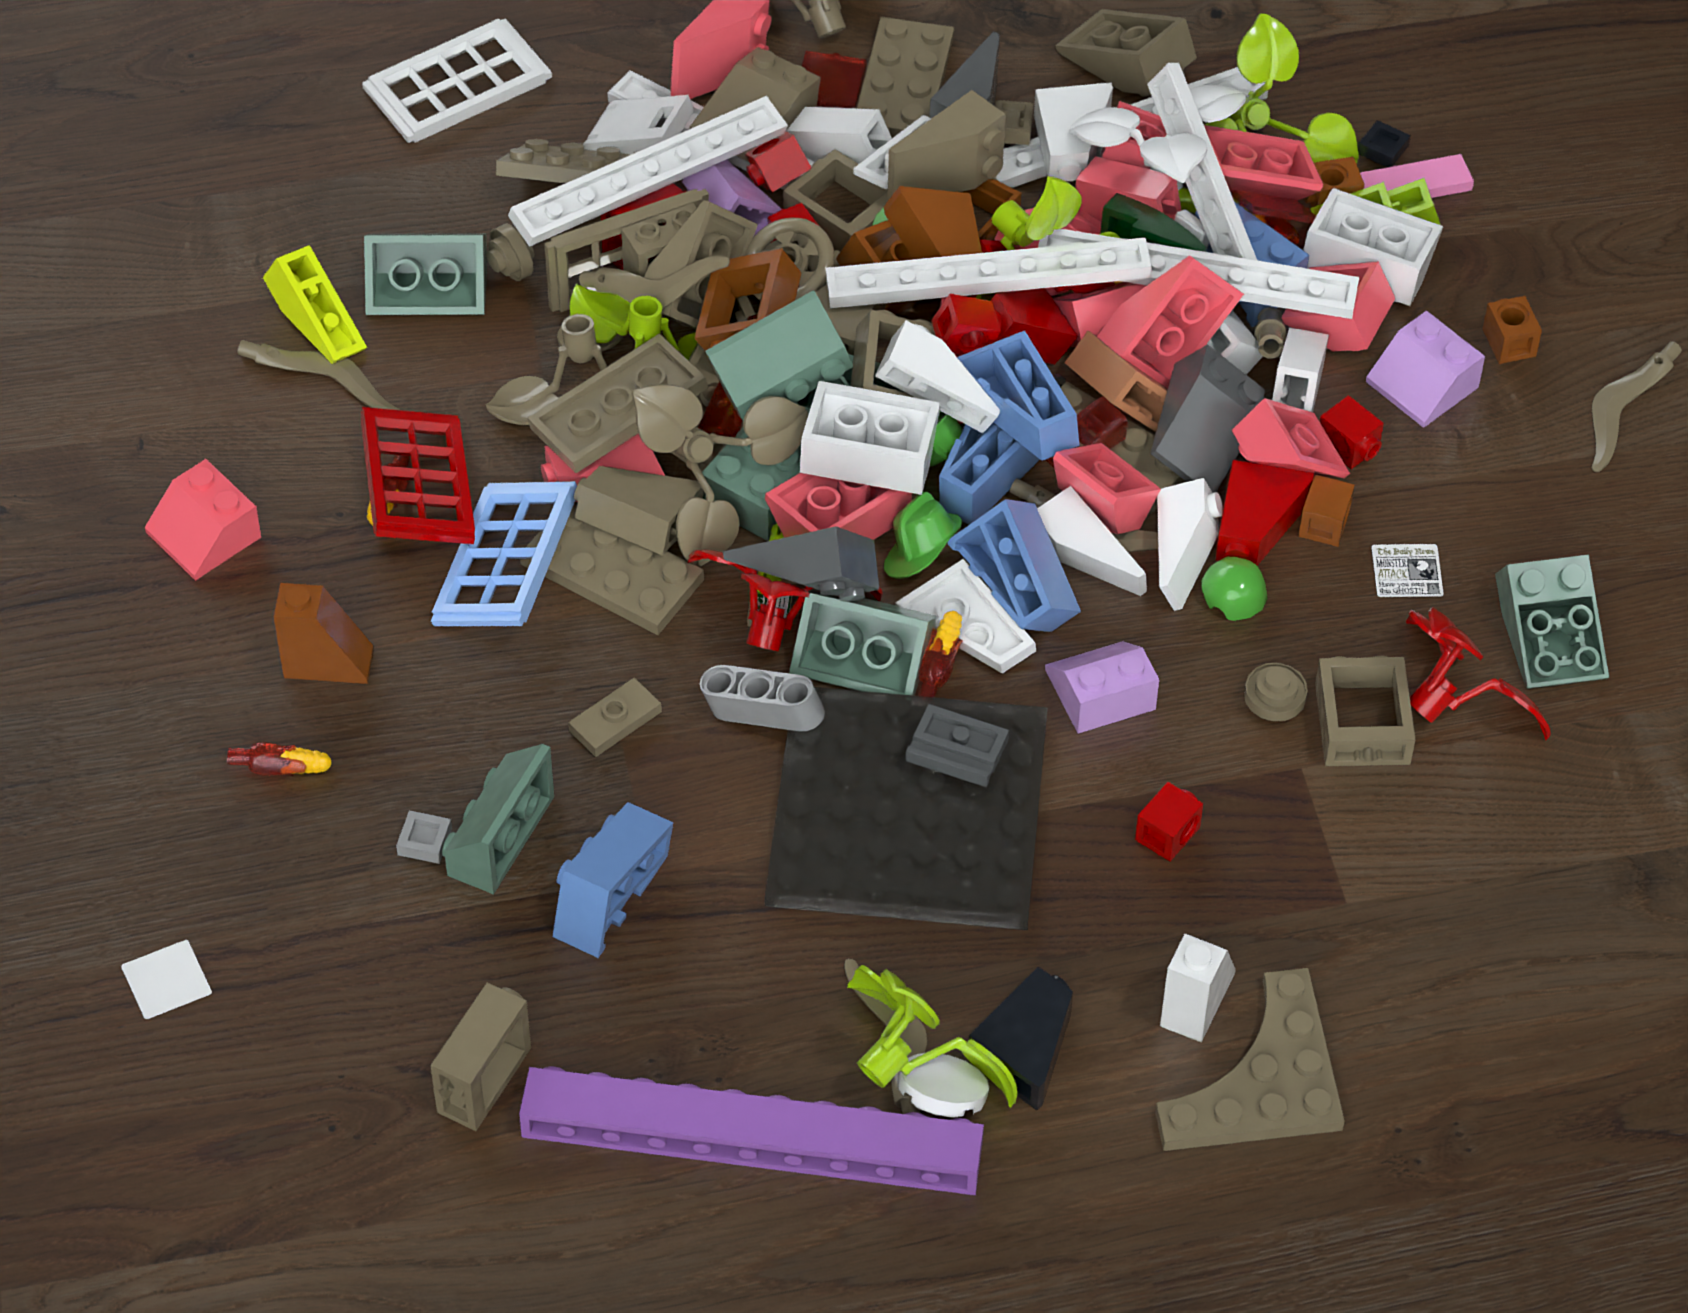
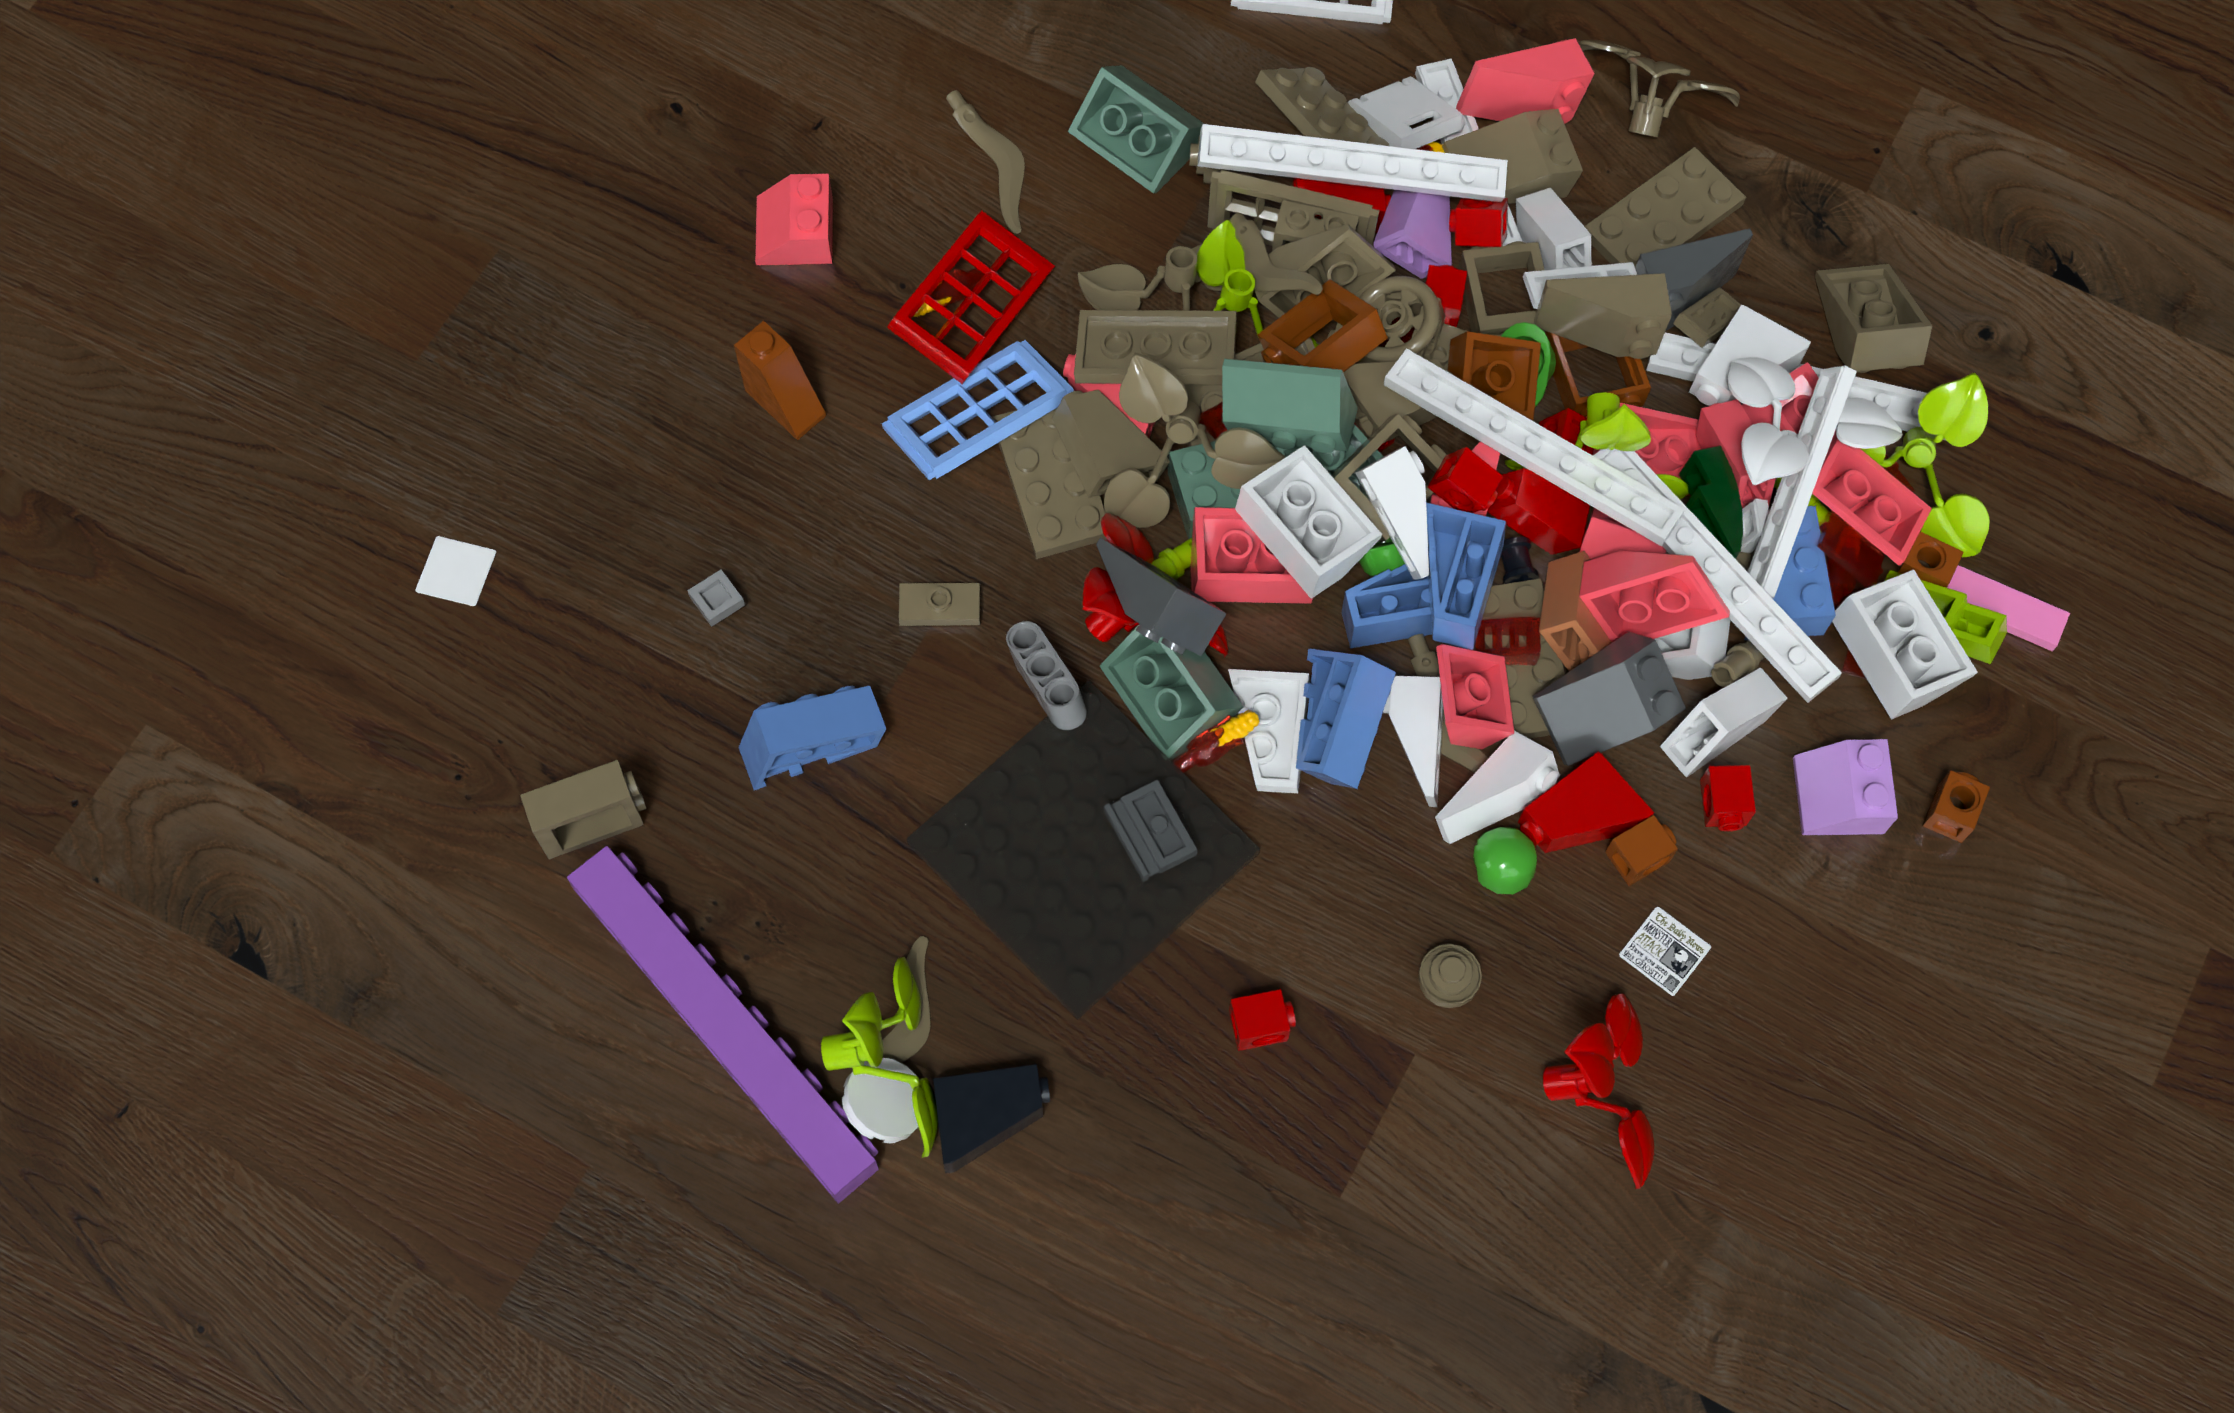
camera: 40 degrees right, 15 degrees up
(276, 759) = (676, 456): clear red piece -> none
(313, 304) = (1029, 100): neon yellow slope -> none
(501, 819) = (775, 628): sand green slope -> none
(839, 78) = (1607, 175): clear red piece -> none
(920, 536) = (1296, 628): bright green piece -> none
(933, 222) = (1540, 373): dark orange slope -> none
(1105, 685) = (1321, 861): lavender slope -> none
(1195, 987) = (1145, 1176): white slope -> none
(1275, 1090) = (1136, 1307): dark tan plate -> none
(1288, 439) = (1657, 773): coral slope -> none
(1350, 744) = (1479, 1081): dark tan window -> none
(1370, 308) = (1850, 695): coral slope -> none
(1383, 144) = (2010, 556): black plate -> none
(1553, 621) = (1735, 1095): sand green slope -> none
(1615, 396) = (1997, 931): dark tan piece -> none

